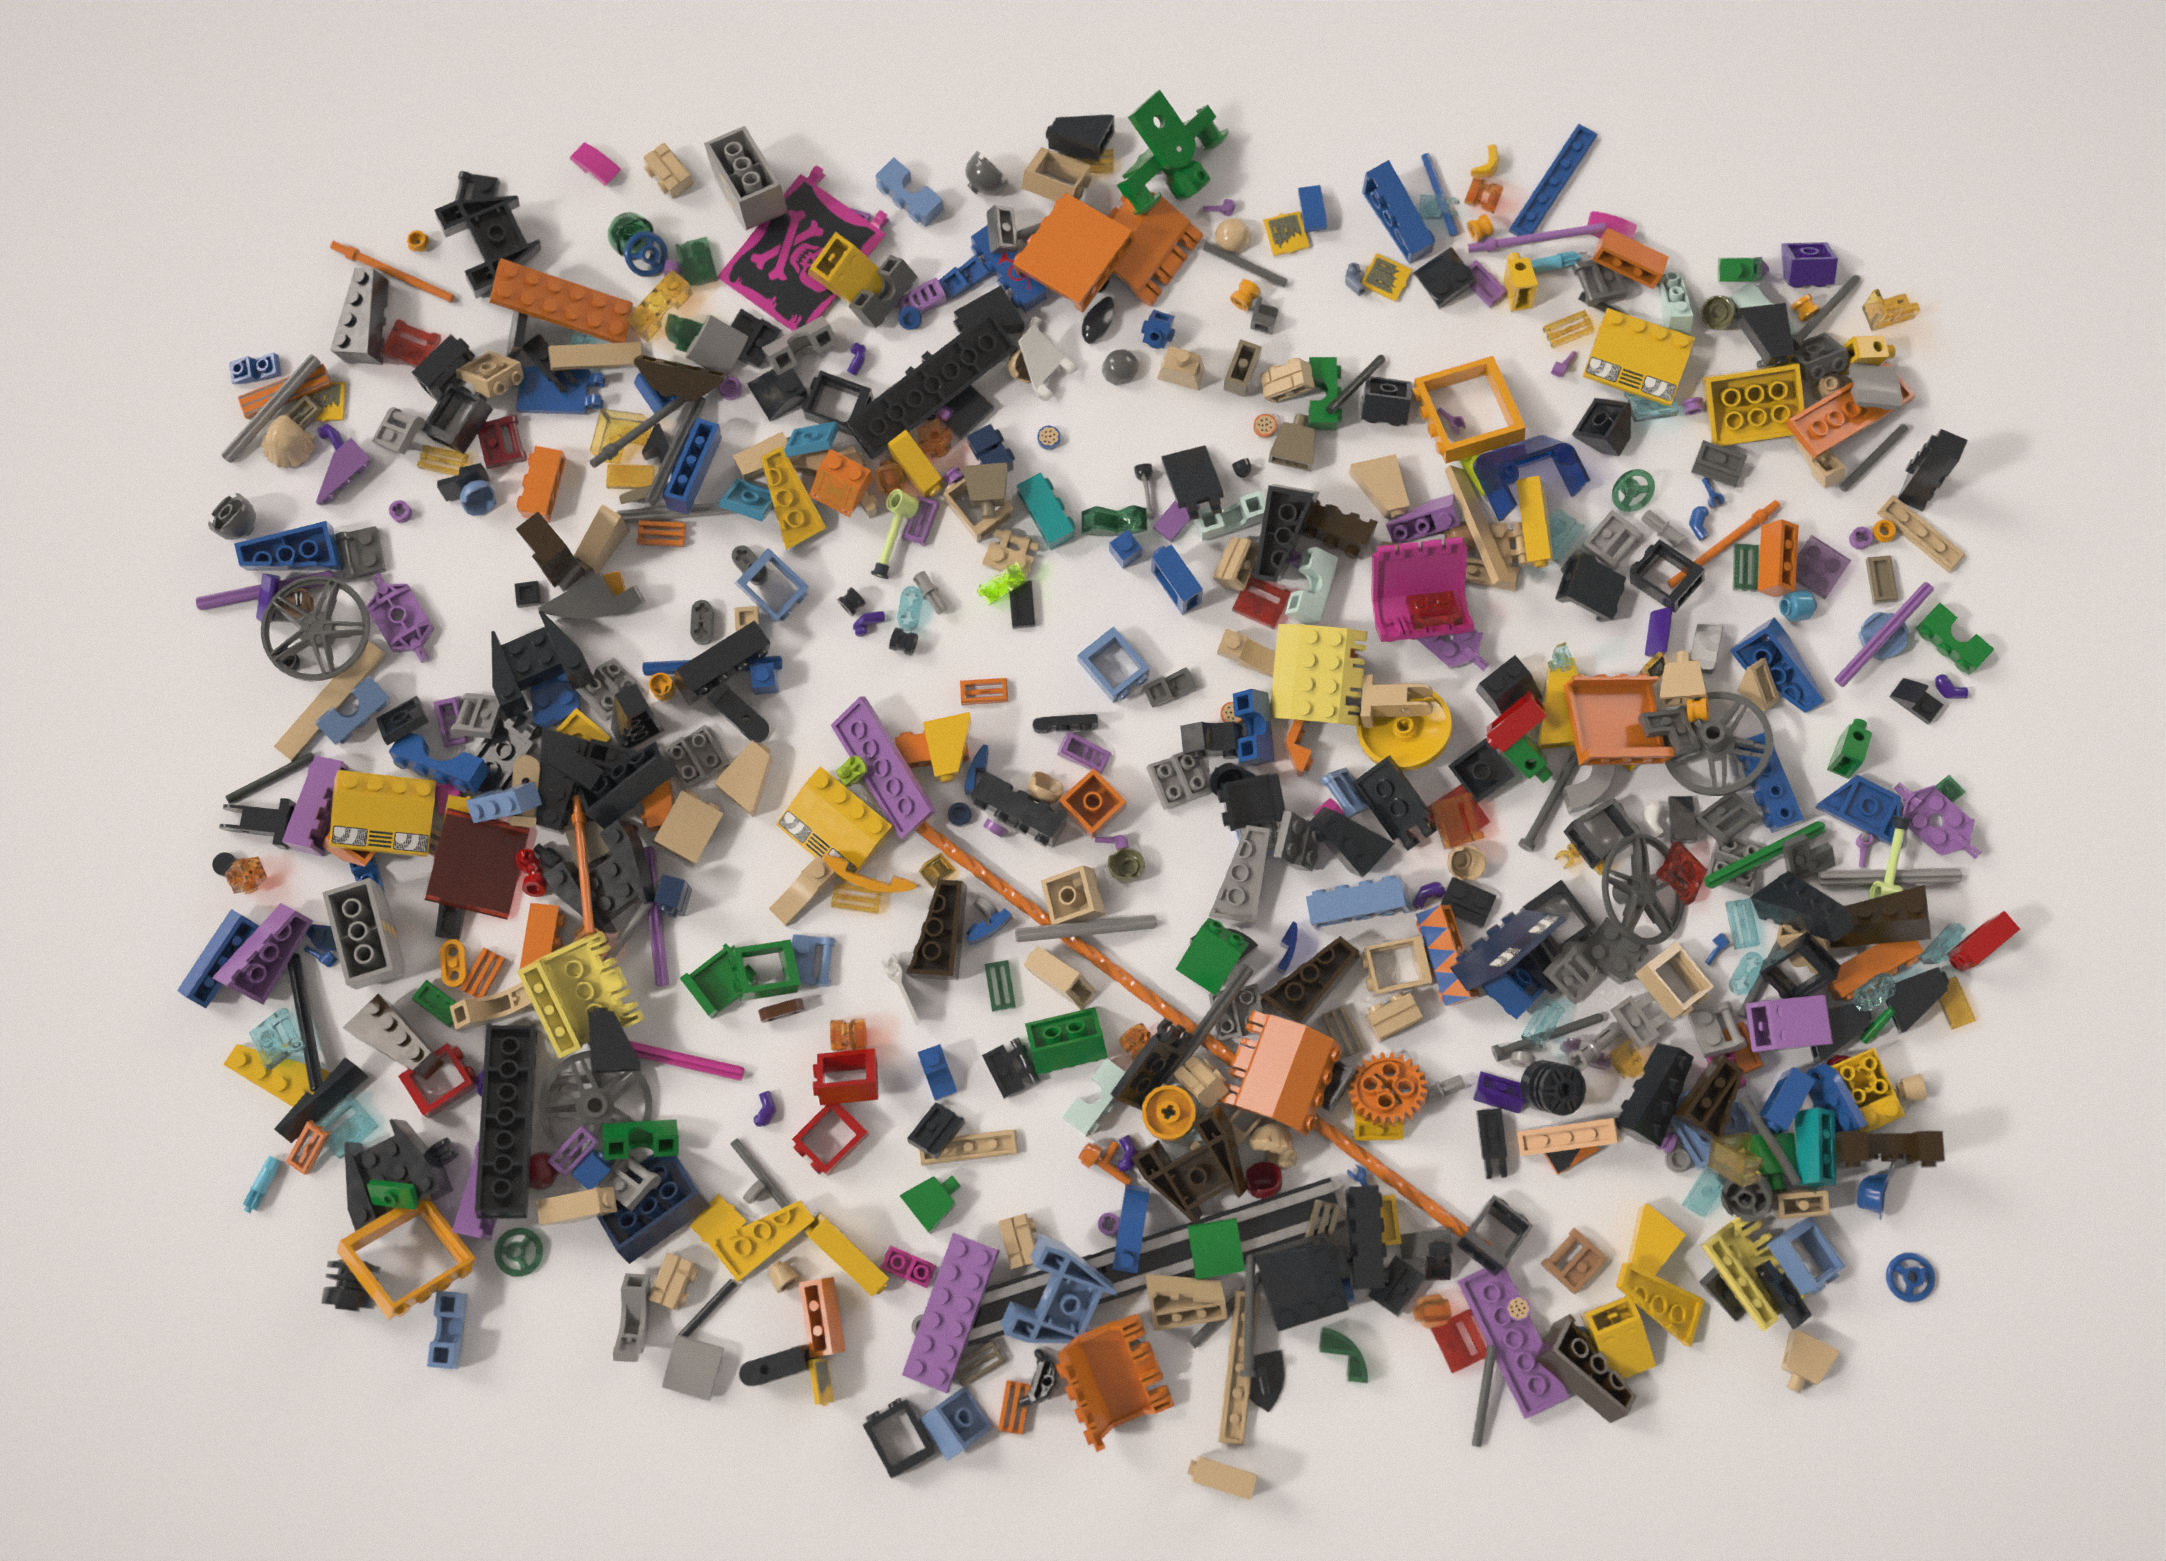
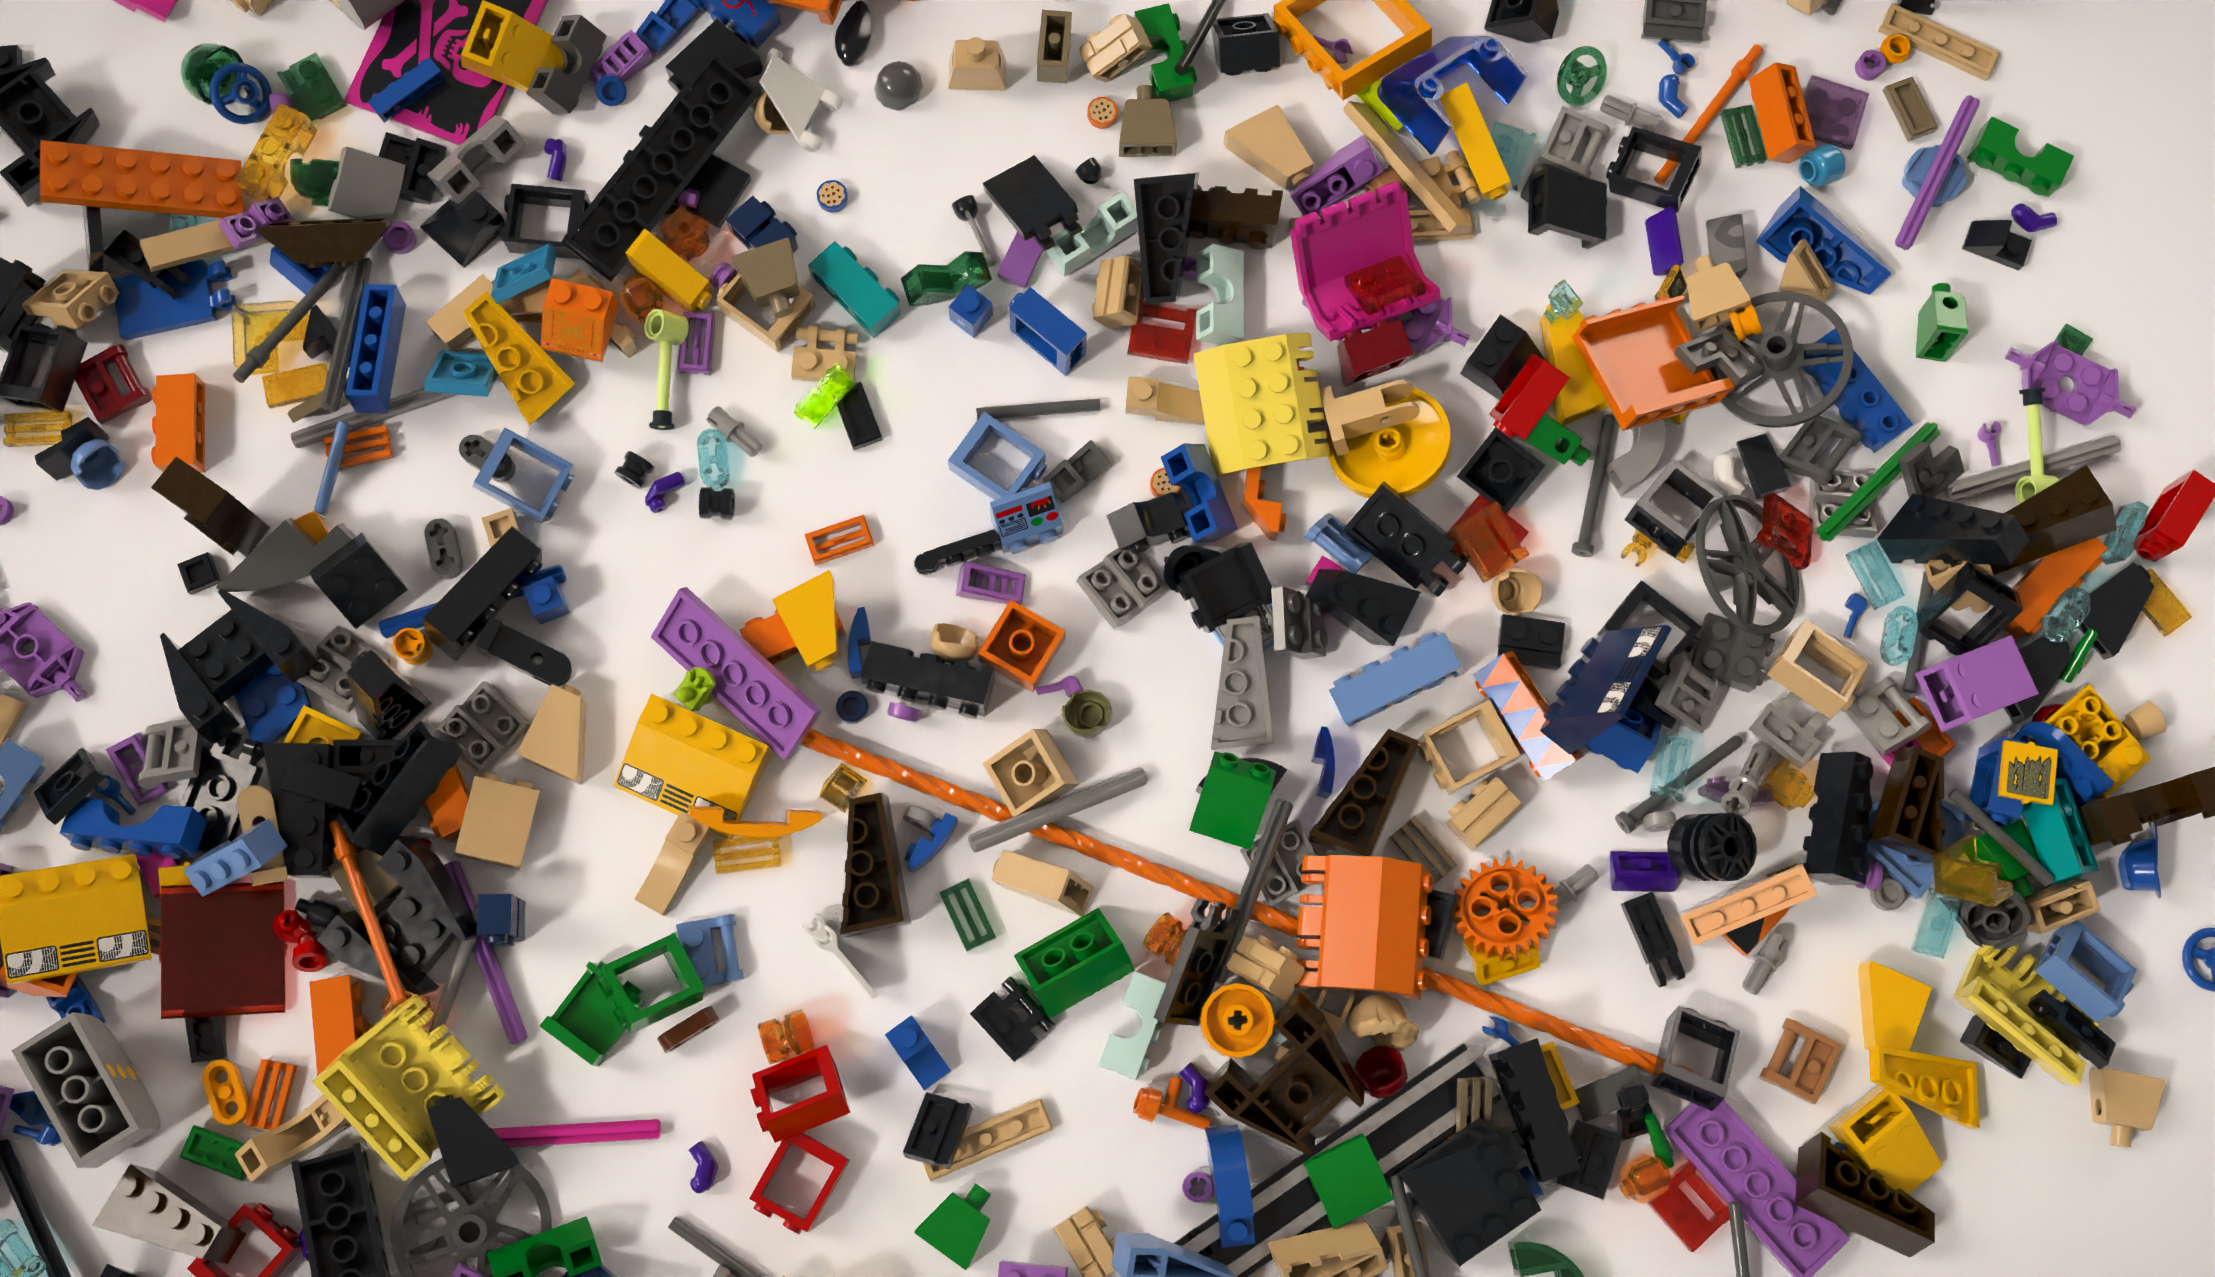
camera: 25 degrees left, 0 degrees up
(430, 734) = (113, 792): none -> blue hand
(600, 540) = (278, 475): tan slope -> none
(623, 354) = (243, 228): none -> medium lavender slope
(637, 630) = (358, 580): none -> black brick
(639, 543) = (332, 467): none -> medium blue bar
(764, 280) = (406, 89): none -> blue piece
(1122, 712) = (1026, 518): none -> medium blue slope
(1156, 634) = (1040, 408): none -> dark grey bar
(1158, 329) = (934, 25): blue brick -> none
(1411, 657) = (1373, 351): none -> dark red slope
(1427, 891) = (1476, 641): dark purple arm -> none
(1451, 1289) = (1658, 1140): none -> green animal
(1518, 1308) = (1752, 1144): tile -> none
(1569, 1183) = (1764, 963): none -> light grey axle
(1803, 1098) = (2027, 772): none -> piece
(1864, 807) = (1979, 391): blue wing -> none

